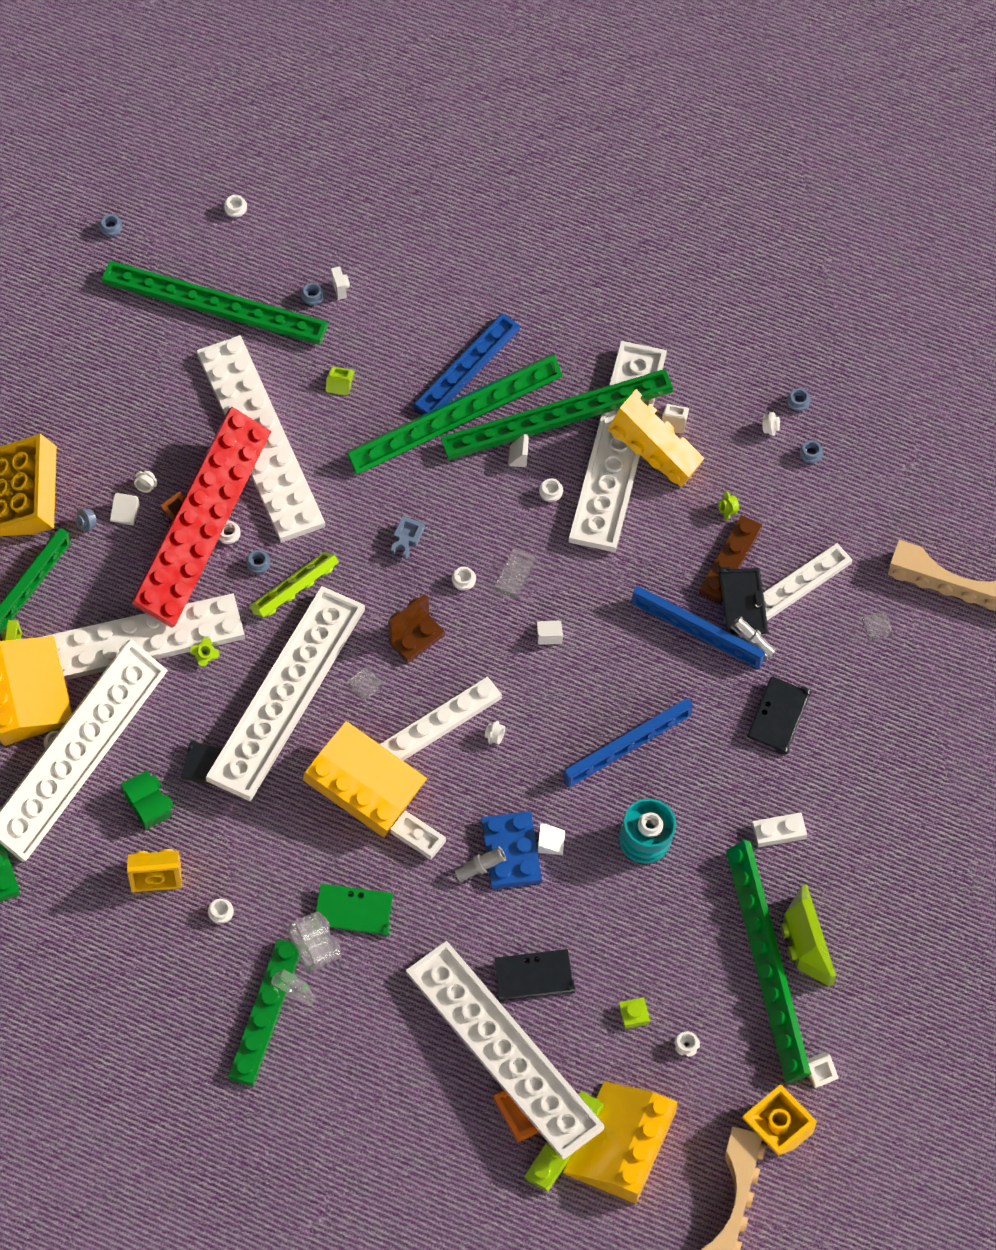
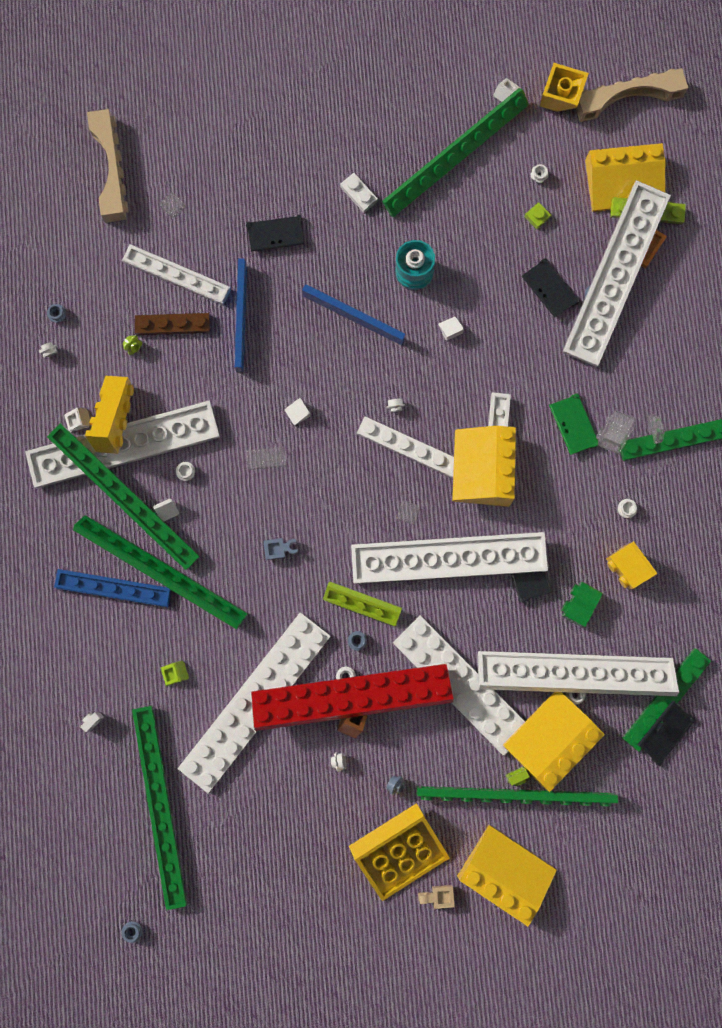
camera: 120 degrees left, 20 degrees up
(124, 509) = (370, 762): white slope -> none
(203, 659) = (444, 636): lime plate -> none
(235, 206) = (62, 844): white plate -> none
(312, 288) = (105, 737): sand blue plate -> none
(413, 629) = (352, 498): reddish brown bracket -> none
(463, 578) = (289, 491): white plate -> none
(480, 864) = (498, 359): light grey pin -> none
(517, 839) = (472, 349): blue plate -> none
(740, 593) = (213, 292): black door -> none
(752, 636) = (230, 274): light grey pin -> none
(799, 394) = (13, 339): sand blue plate -> none
(806, 939) = (425, 138): lime wedge -> none

